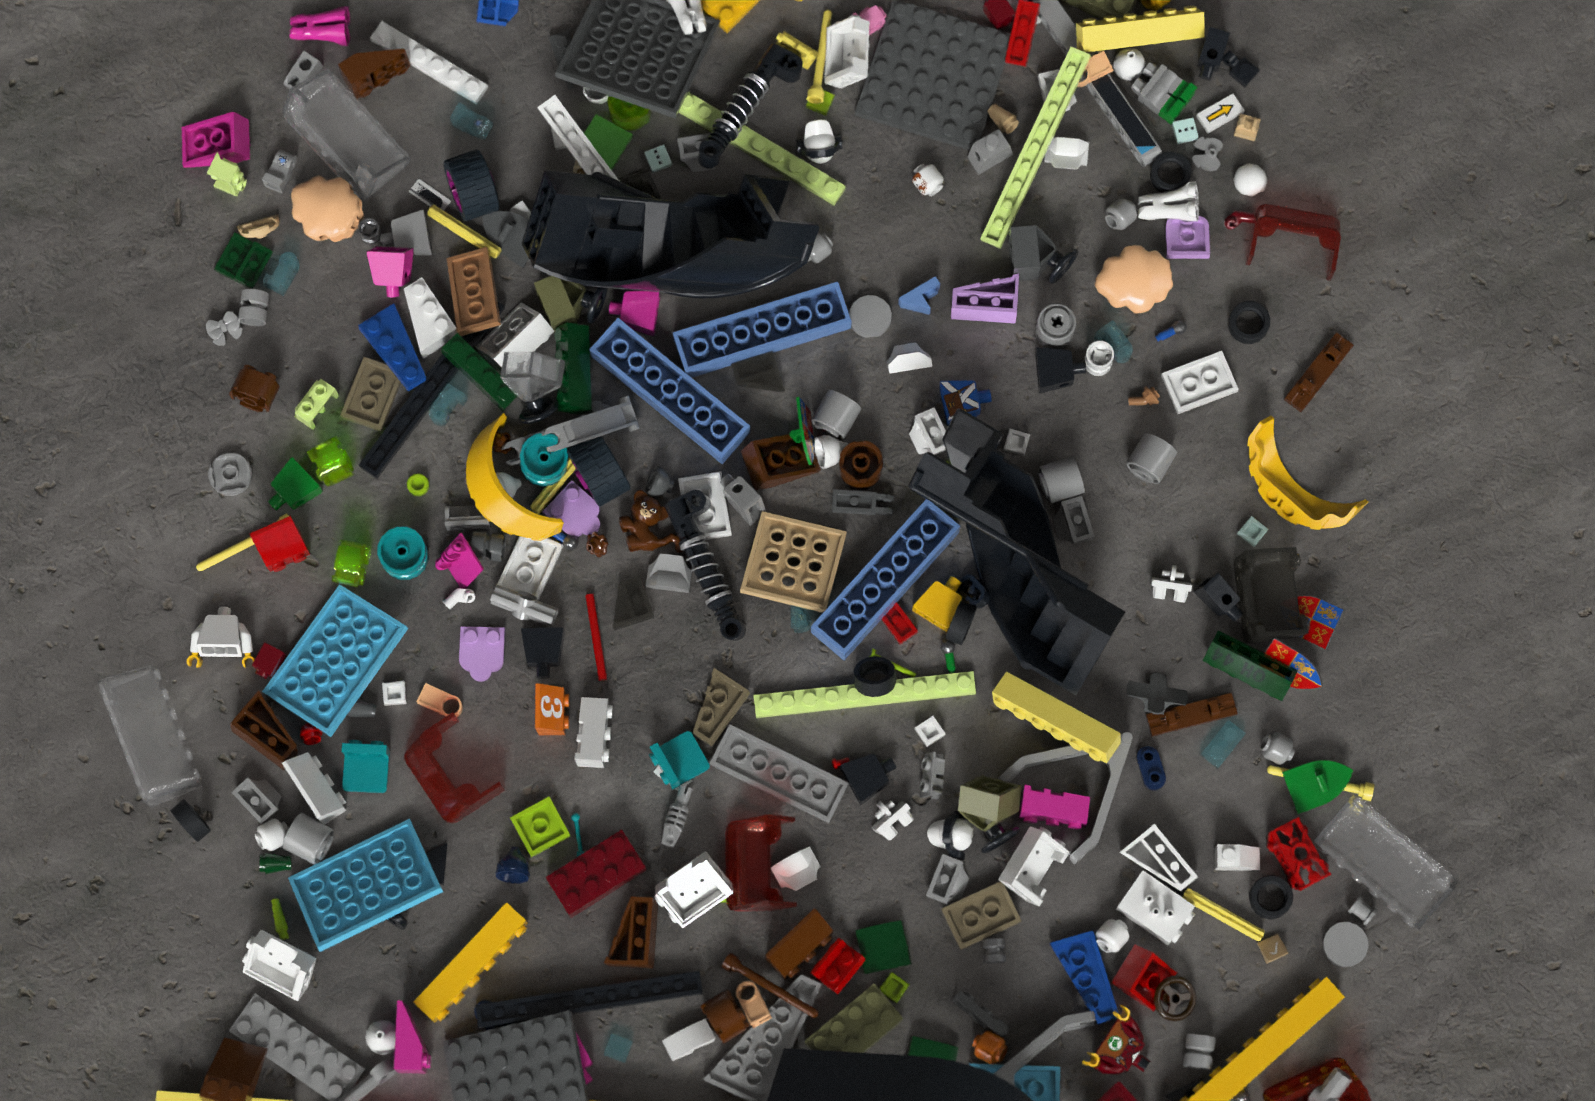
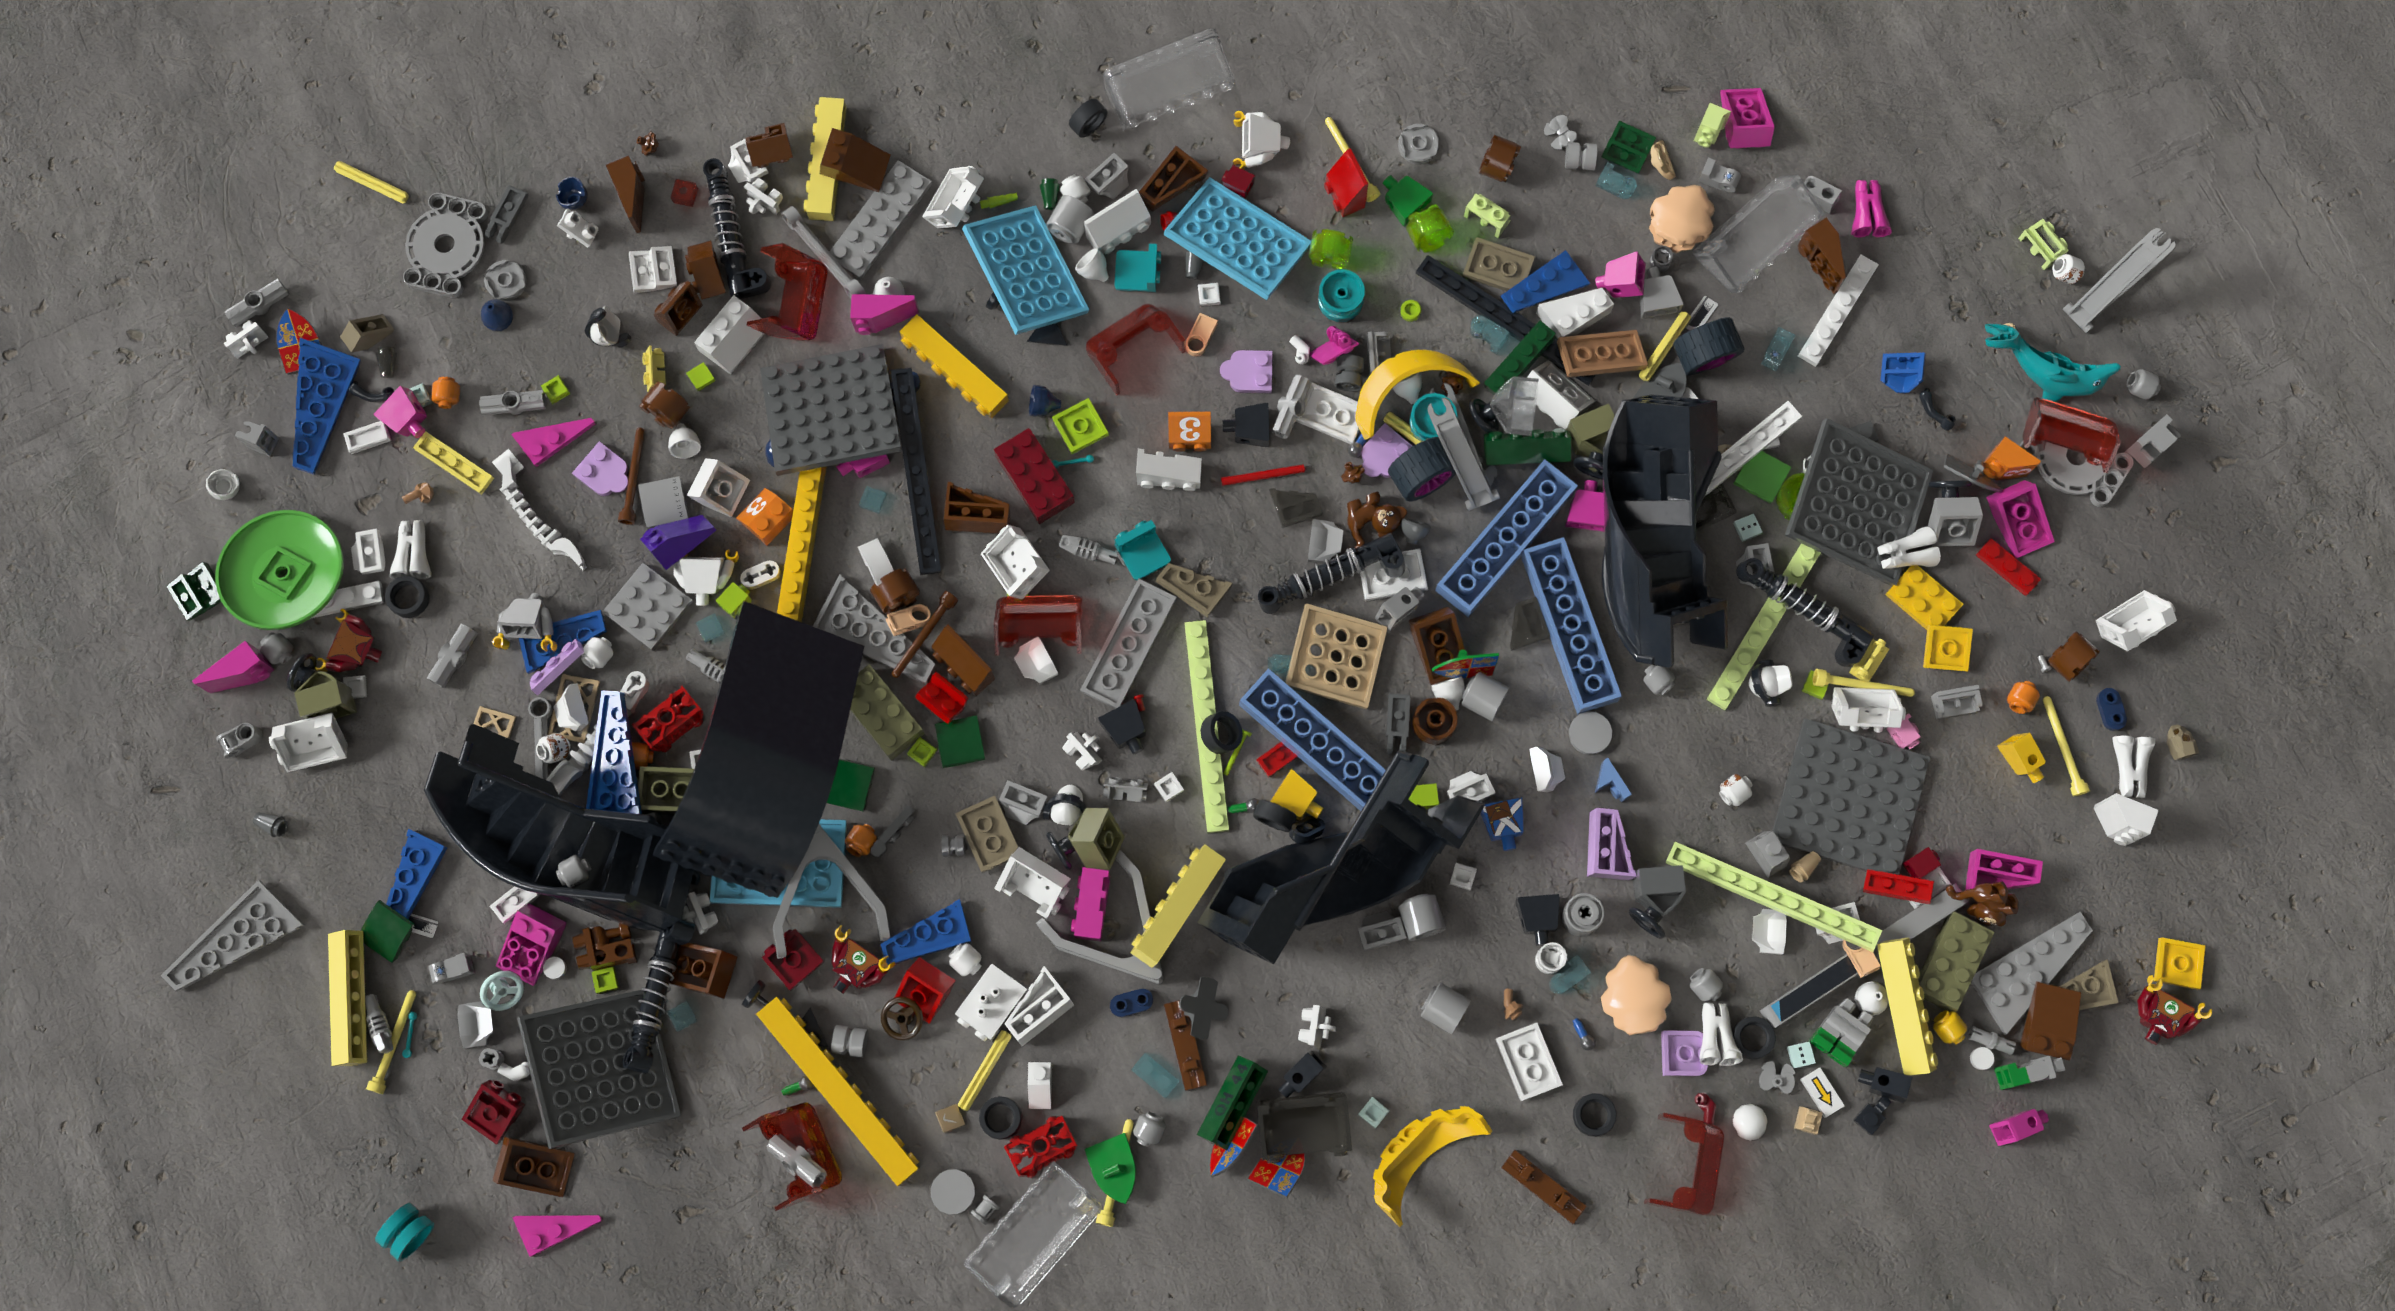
camera: 90 degrees right, 0 degrees up
(360, 815) = (1093, 266): none -> white helmet

